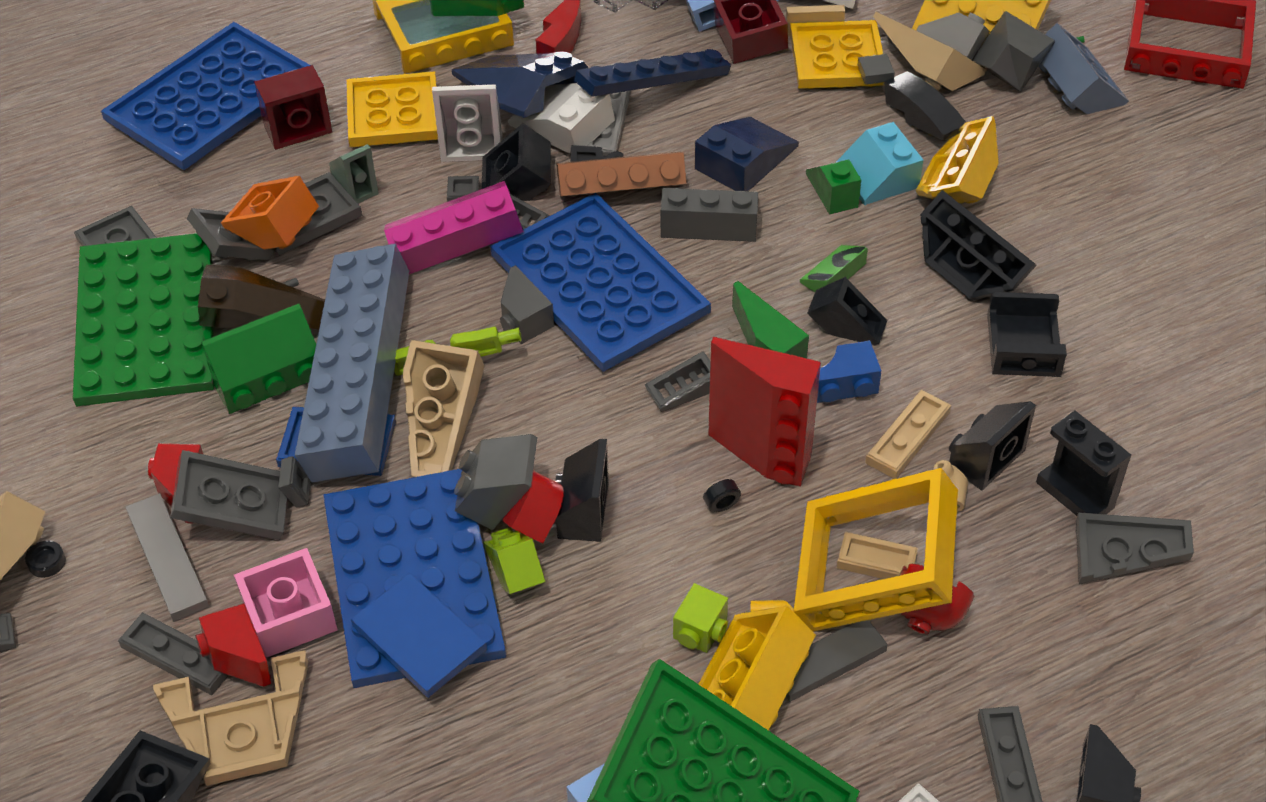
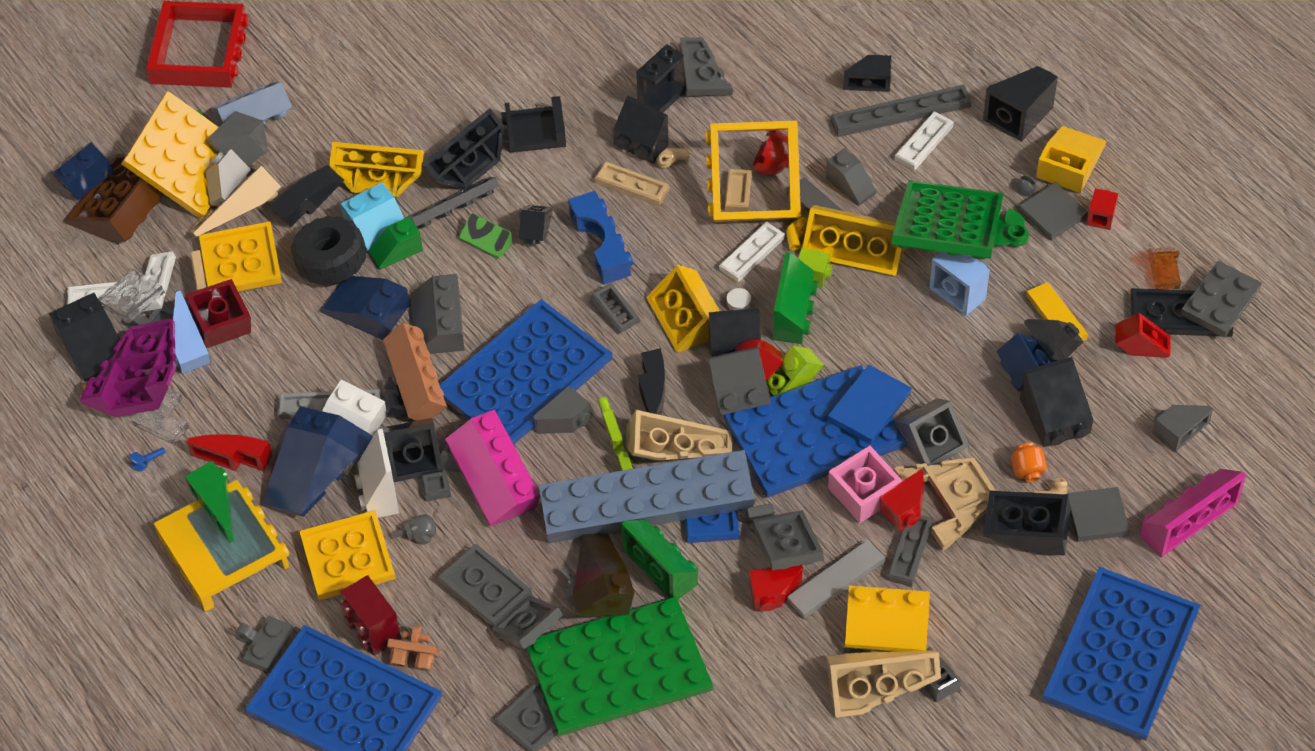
camera: 100 degrees left, 5 degrees up
(68, 592) = (887, 619): none -> yellow slope
(245, 148) = (424, 652): none -> nougat hips
(272, 213) = (509, 589): orange slope -> none
(314, 48) = (264, 644): none -> dark grey plate
(351, 714) = (933, 432): none -> dark grey slope
(356, 173) = (439, 551): sand green slope -> none
(405, 169) = (419, 528): none -> dark grey piece
(535, 400) = (652, 381): none -> black slope
(633, 569) = (794, 301): none -> green slope
(652, 72) = (299, 363): dark blue plate -> none
(662, 458) = (683, 307): none -> yellow slope
(666, 524) = (738, 299): none -> white tile
(722, 495) = (713, 270): black tile -> none
(753, 555) = (752, 252): none -> white tile
(764, 407) = (667, 227): red slope -> none
(765, 325) = (561, 265): green slope -> none
(825, 113) = (328, 250): none -> black tyre
(873, 703) = (850, 177): none -> dark grey slope
(875, 68) = (268, 225): dark grey tile -> none
(901, 246) = (461, 198): none -> plate

